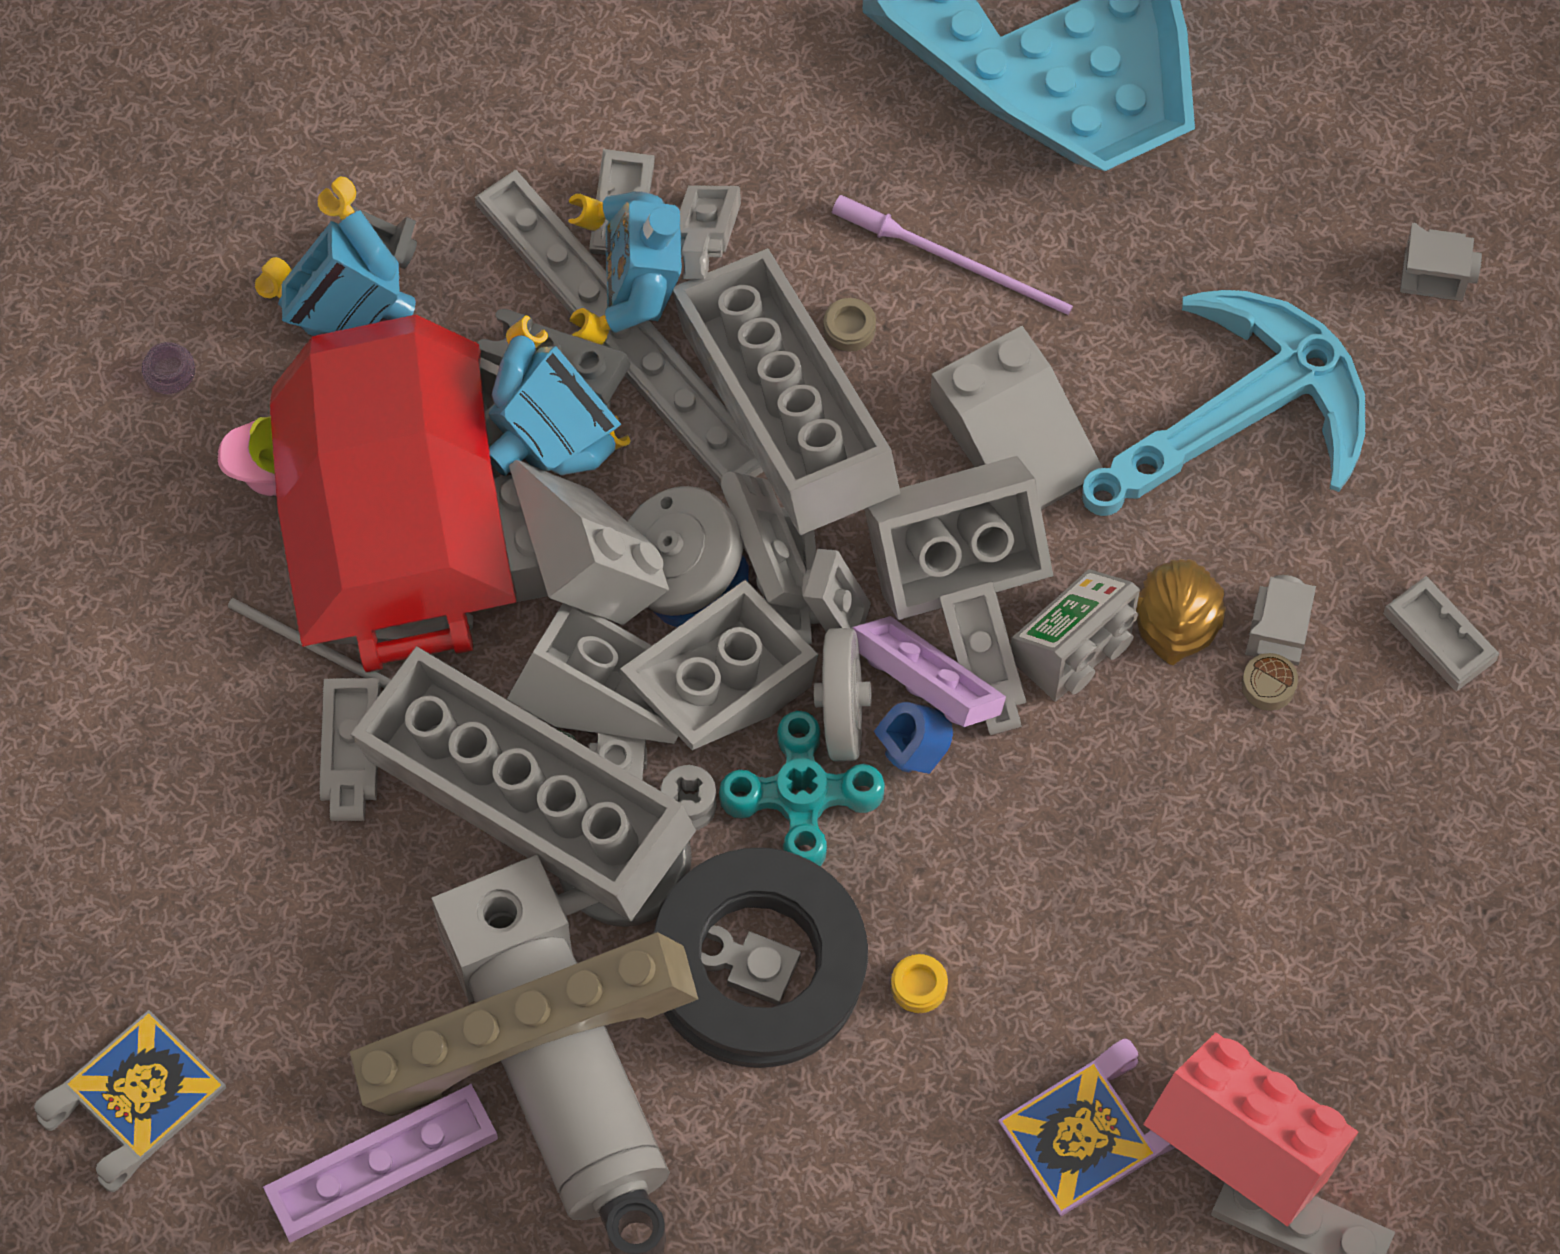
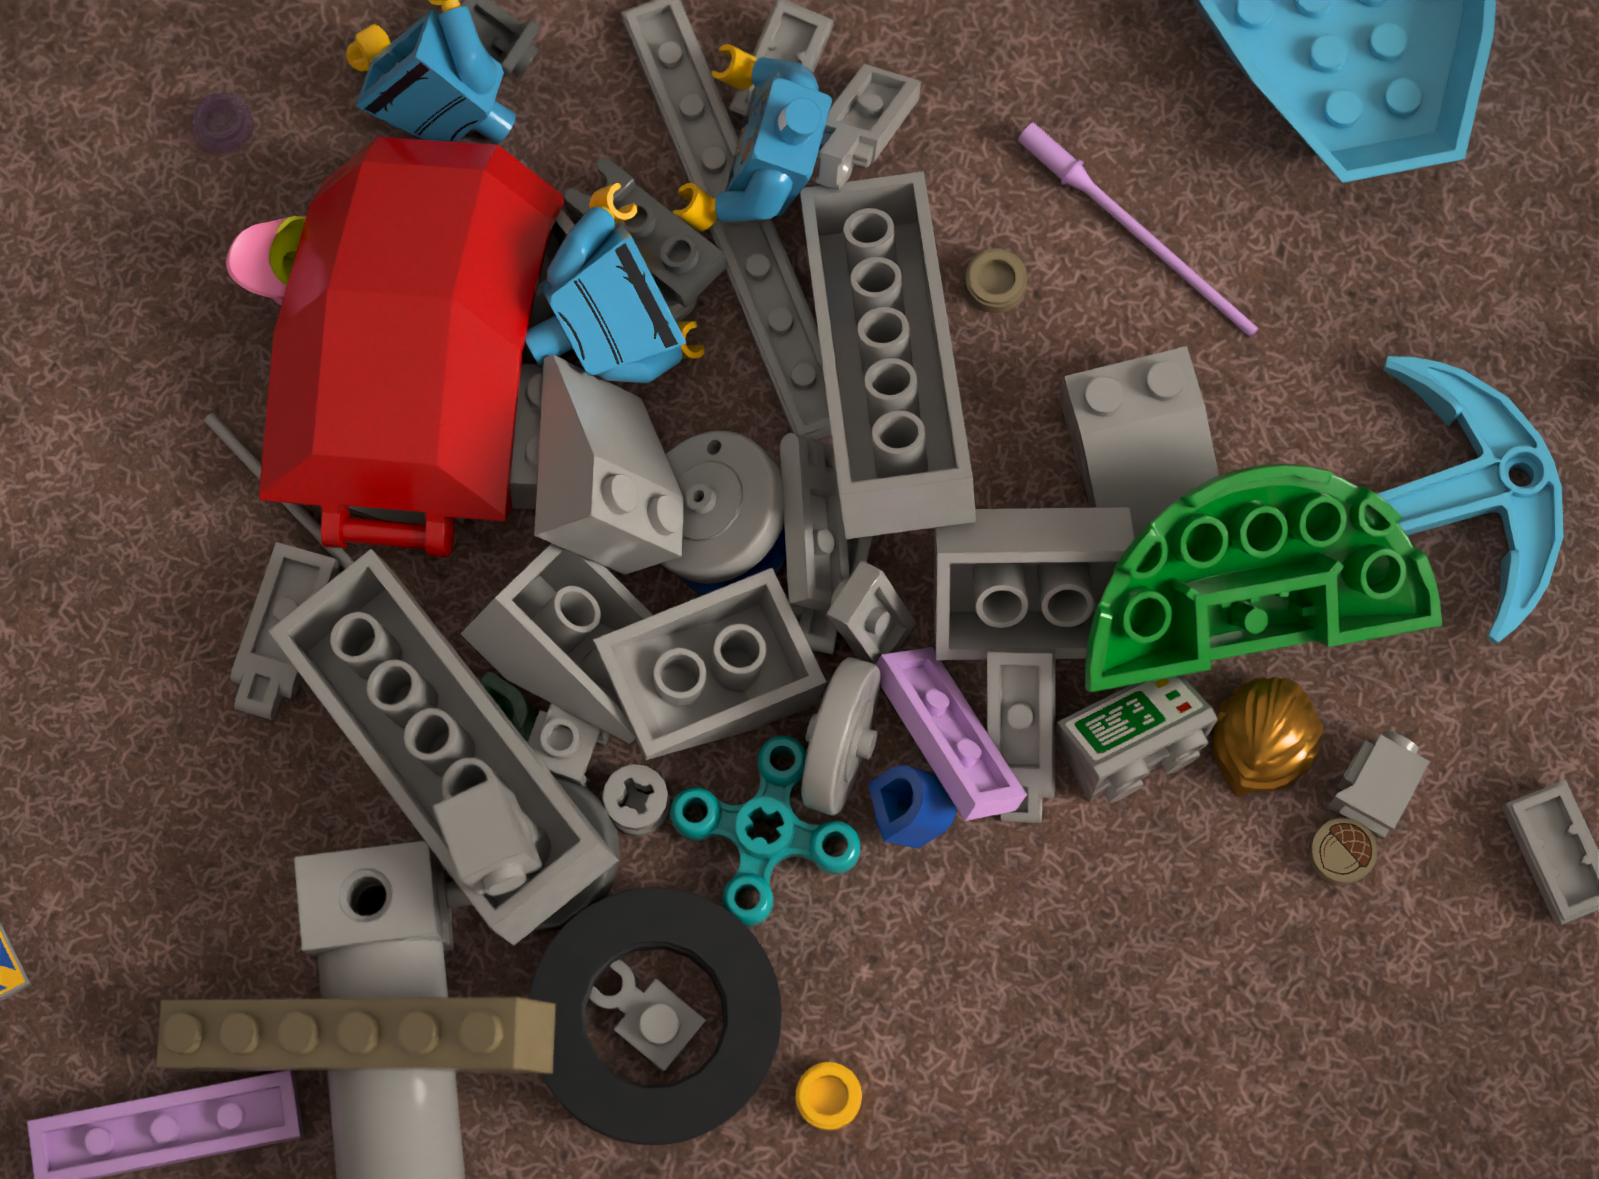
camera: 20 degrees right, 10 degrees up
(593, 822) = (488, 838): none -> light grey brick
(1136, 472) = (1257, 568): none -> green brick

